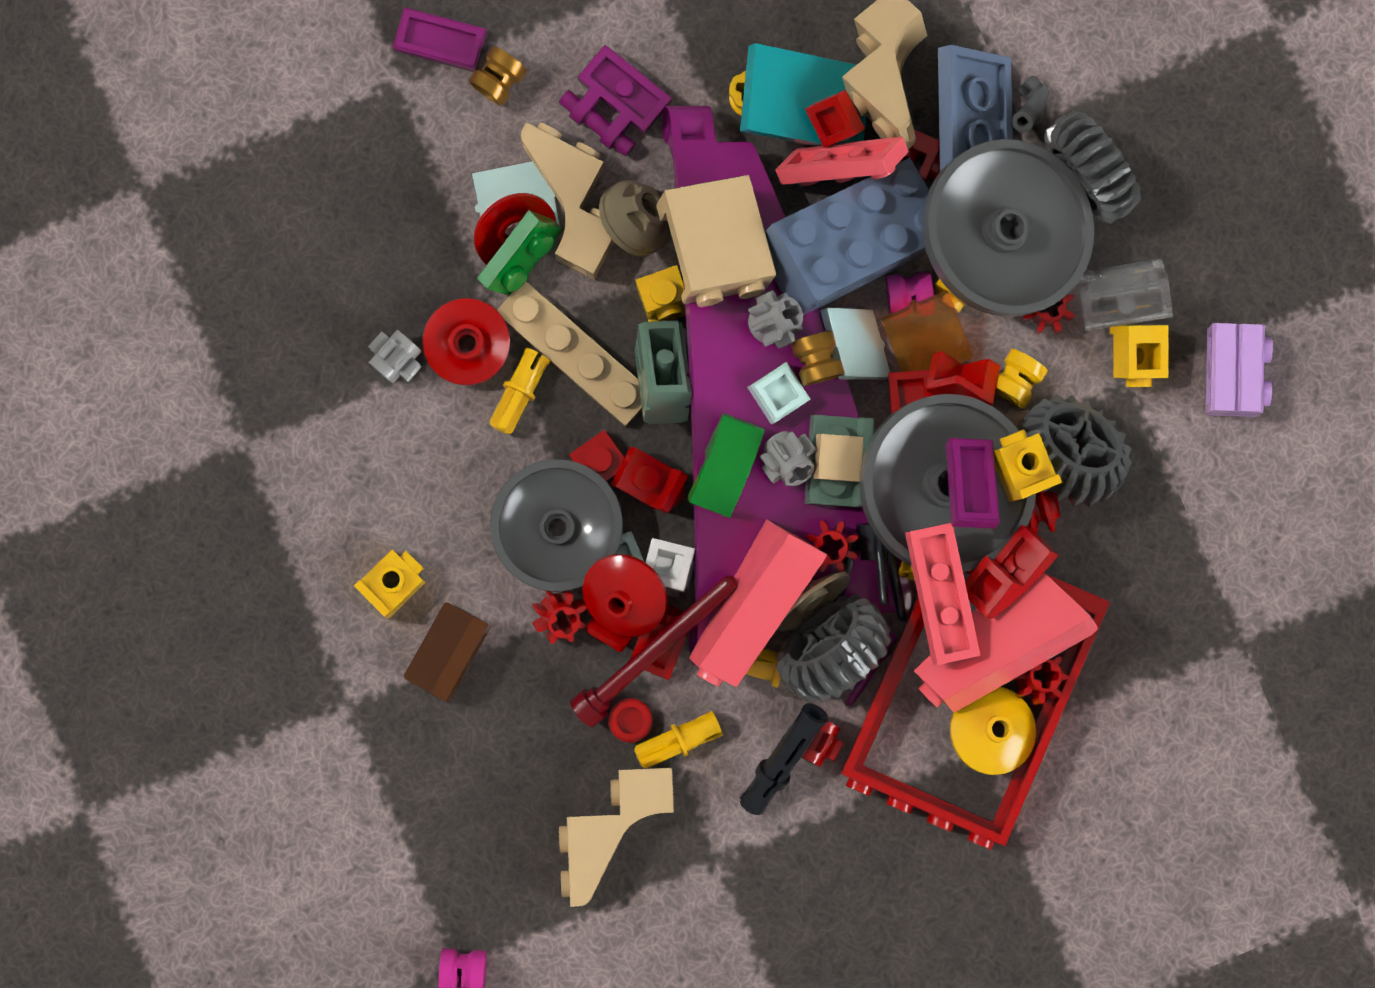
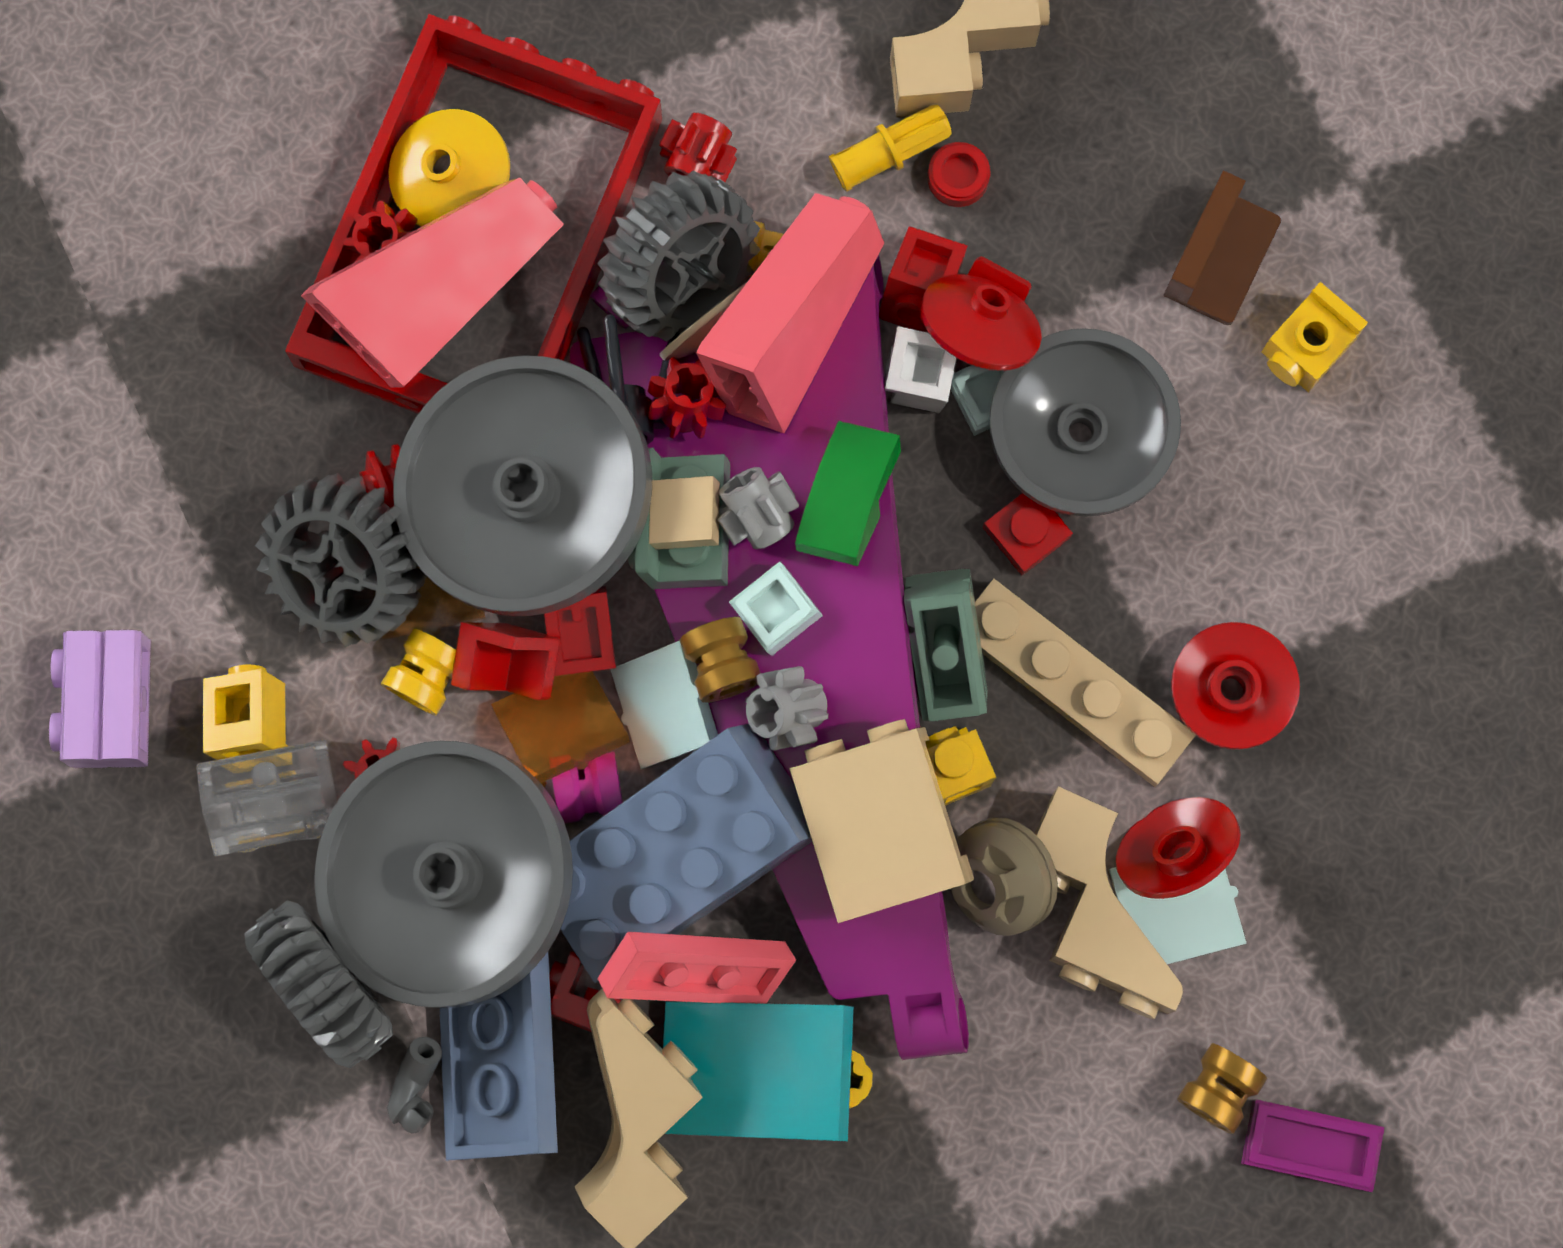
camera: 170 degrees right, 5 degrees down
(394, 356) = (1338, 658): light grey gear -> none
(518, 392) = (1152, 619): yellow axle -> none
(520, 253) = (1169, 813): green plate -> none
(548, 620) = (1070, 299): red gear -> none
(592, 704) = (1013, 188): dark red piece -> none
(622, 89) = (1030, 1077): magenta plate -> none
(650, 481) = (953, 498): red bracket -> none
(774, 772) = (753, 100): black pin -> none
(834, 118) = (710, 1034): red plate -> none
(942, 594) = (526, 316): coral plate -> none
(972, 483) = (487, 475): magenta tile -> none
(1004, 579) = (430, 358): red slope -> none
(1017, 480) = (399, 485): yellow brick -> none

